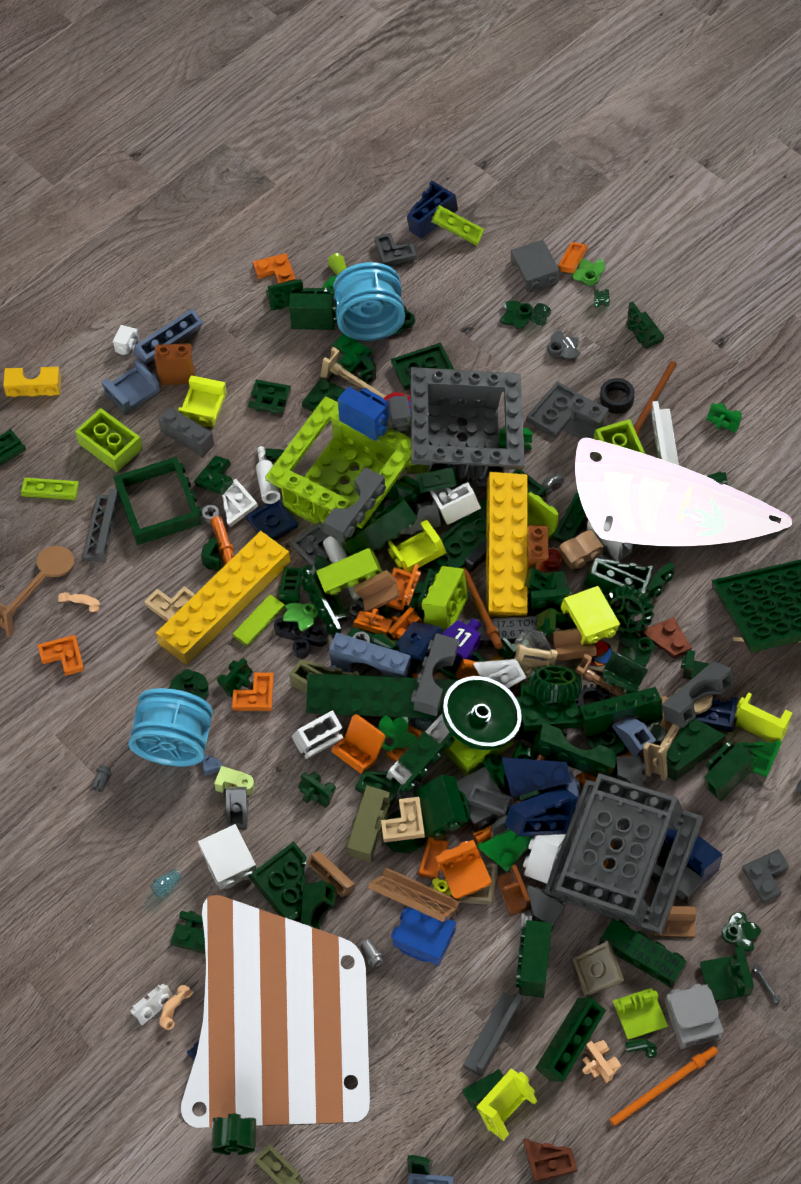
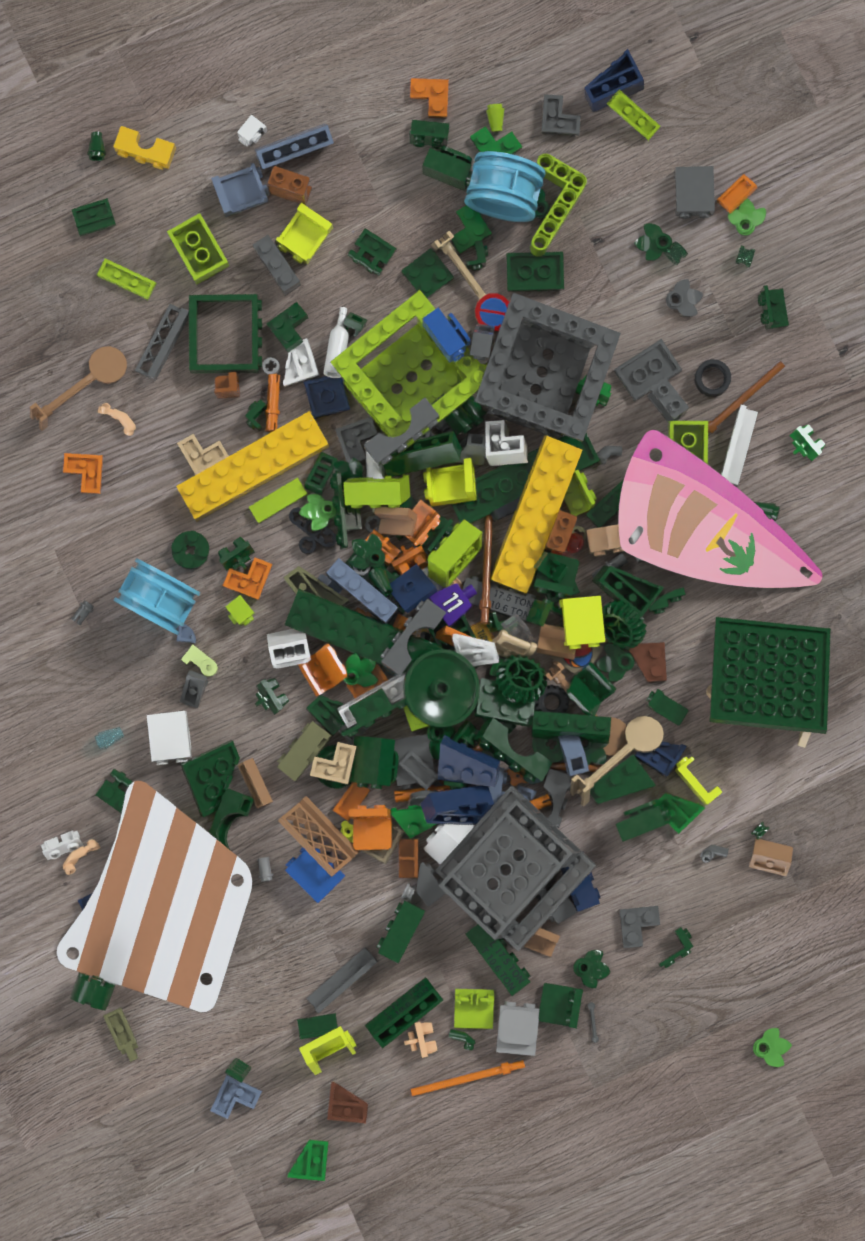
camera: 20 degrees right, 25 degrees up
(176, 538) = (227, 386): none -> dark orange panel
(257, 724) = (240, 611): none -> lime brick
(360, 622) = (365, 550): none -> dark green plate
(427, 294) = (560, 204): none -> lime beam
(436, 479) = (494, 421): dark green plate -> none
(598, 969) = (452, 959): dark tan tile -> none
(711, 680) = (668, 726): dark grey arch -> none

